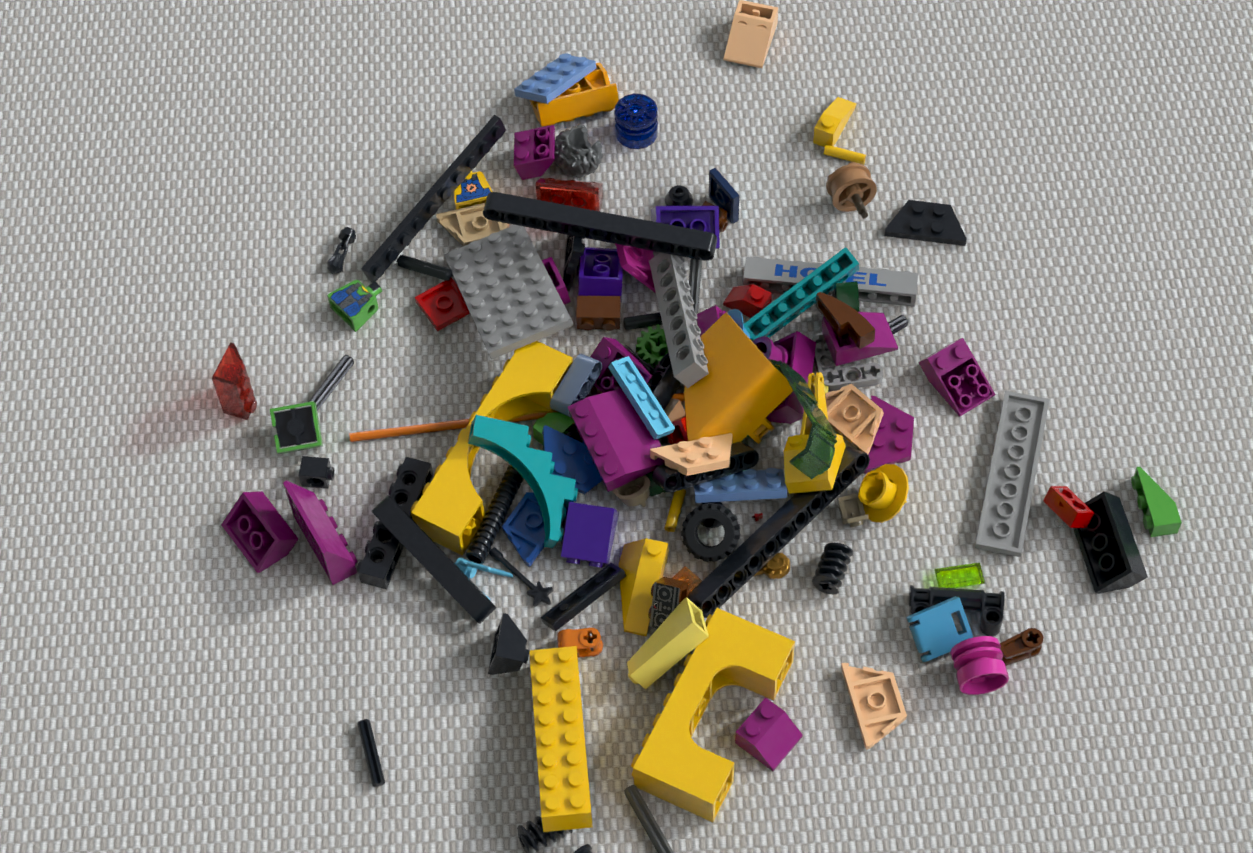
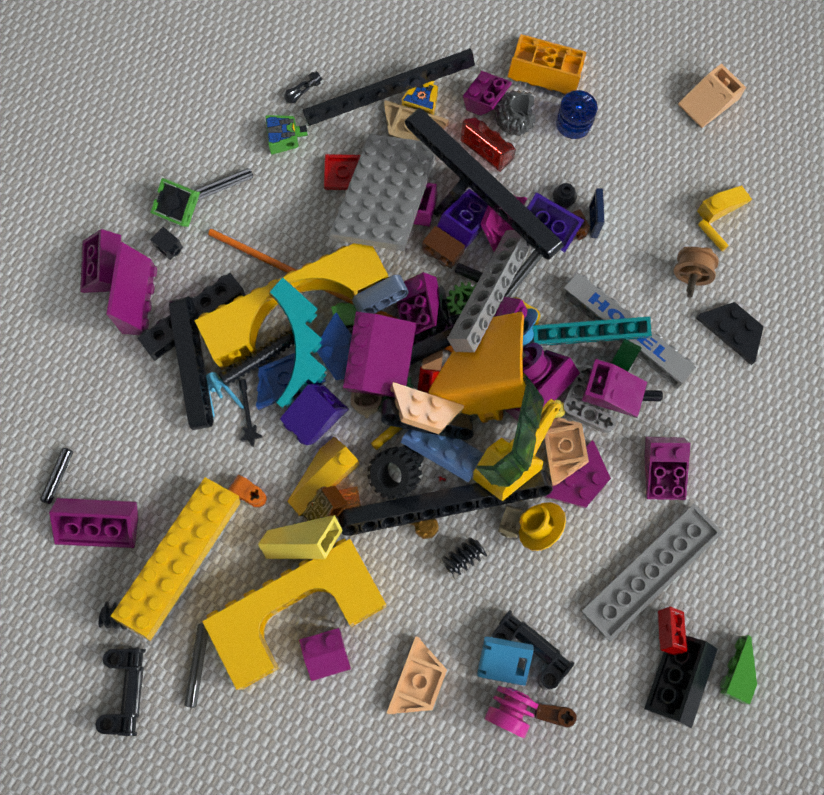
camera: 30 degrees right, 15 degrees up
(234, 385) = (154, 142): clear red slope -> none
(424, 267) = (348, 136): black axle -> none
(447, 767) = (94, 522): none -> magenta slope
(508, 648) = (193, 464): black slope -> none
(555, 78) = (541, 45): medium blue plate -> none
(583, 596) = (276, 458): black tile -> none
(641, 397) = (415, 338): medium azure plate -> none
(748, 299) = (556, 307): red slope -> none
(845, 320) = (608, 374): reddish brown slope -> none
(960, 576) = (552, 626): clear neon green tile -> none

